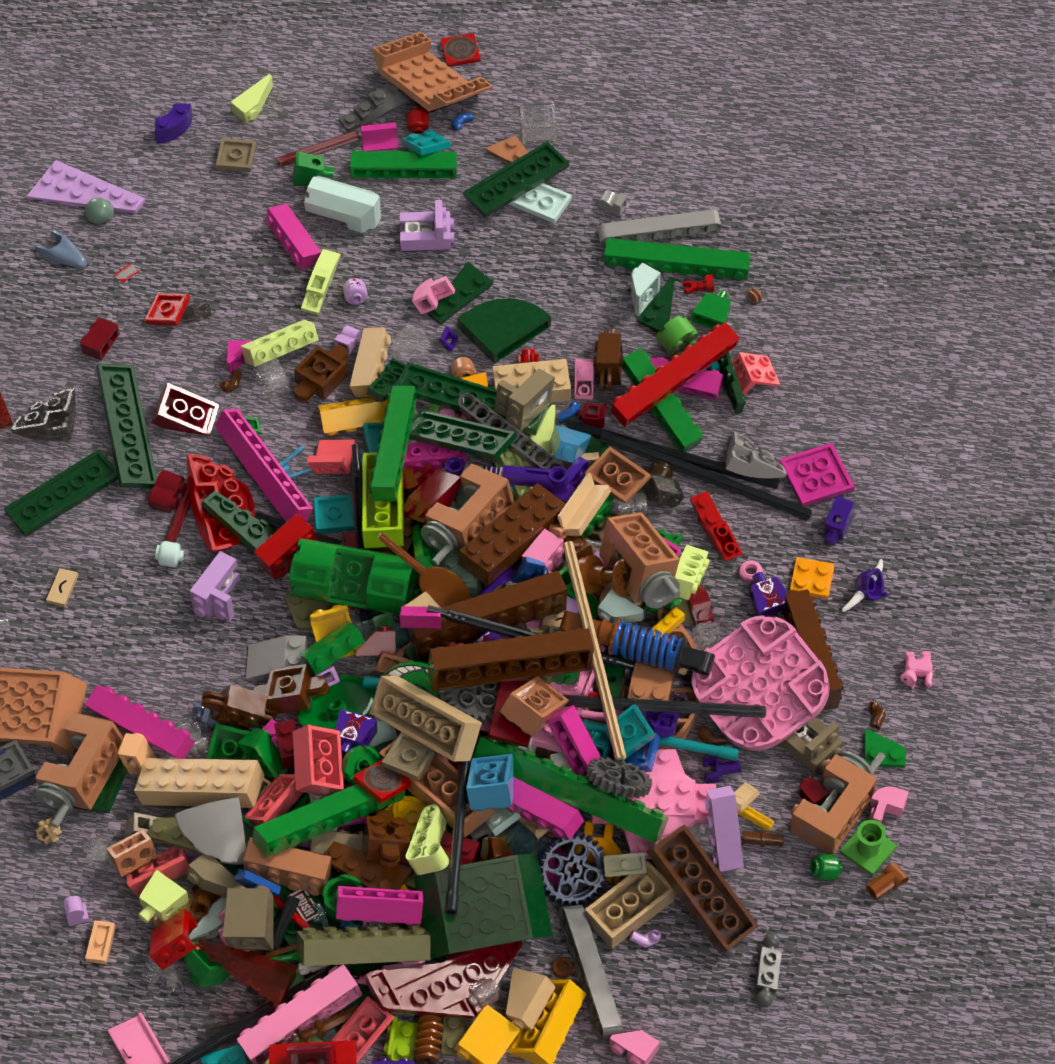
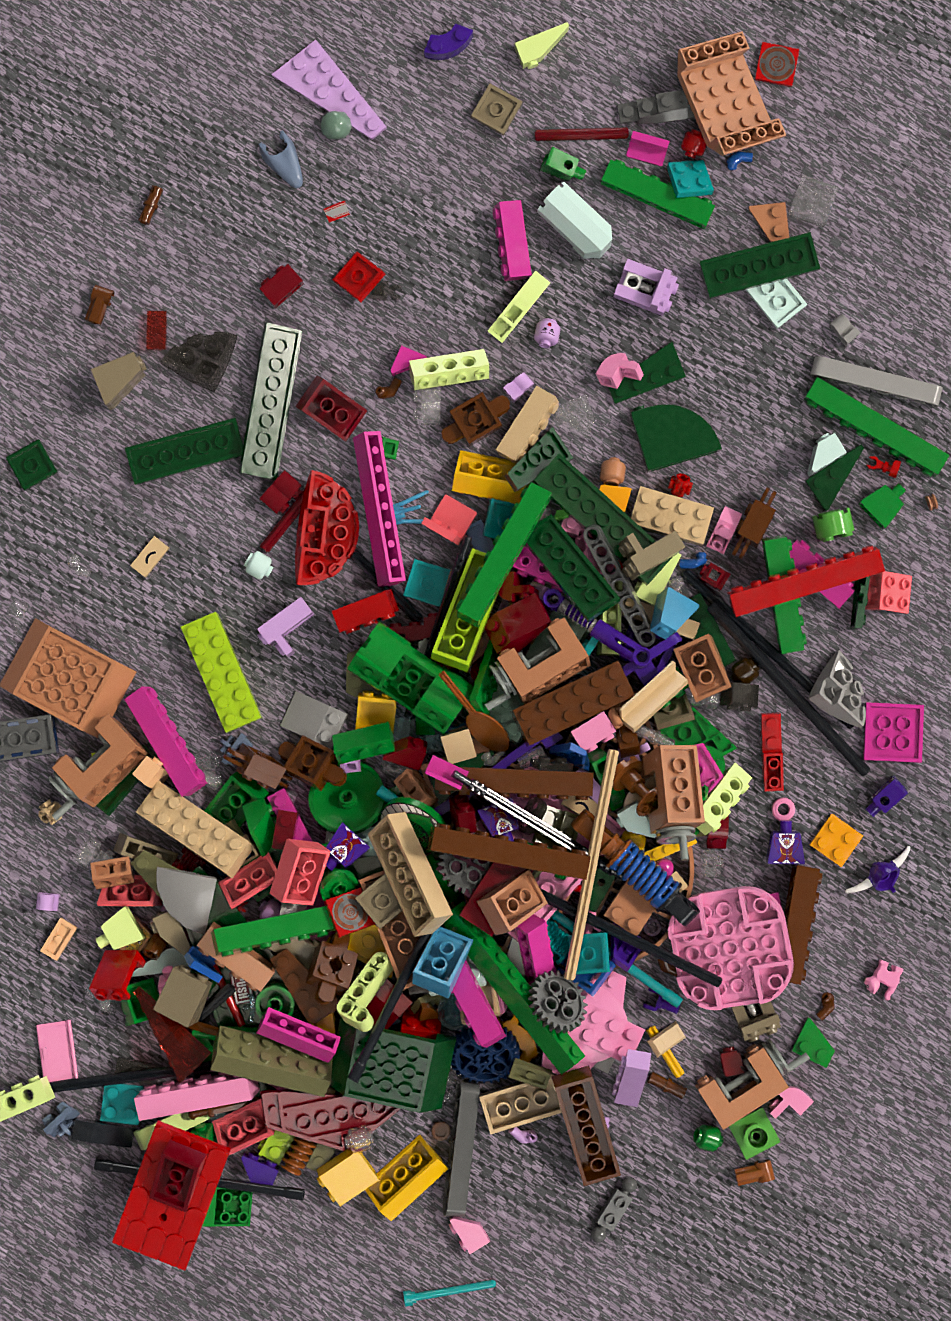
camera: 25 degrees right, 30 degrees up
(170, 651) = (221, 672): none -> lime brick
(238, 521) = (336, 564): dark green wing -> none
(448, 334) = (614, 421): dark purple slope -> none
(527, 997) = (396, 1153): tan slope -> none

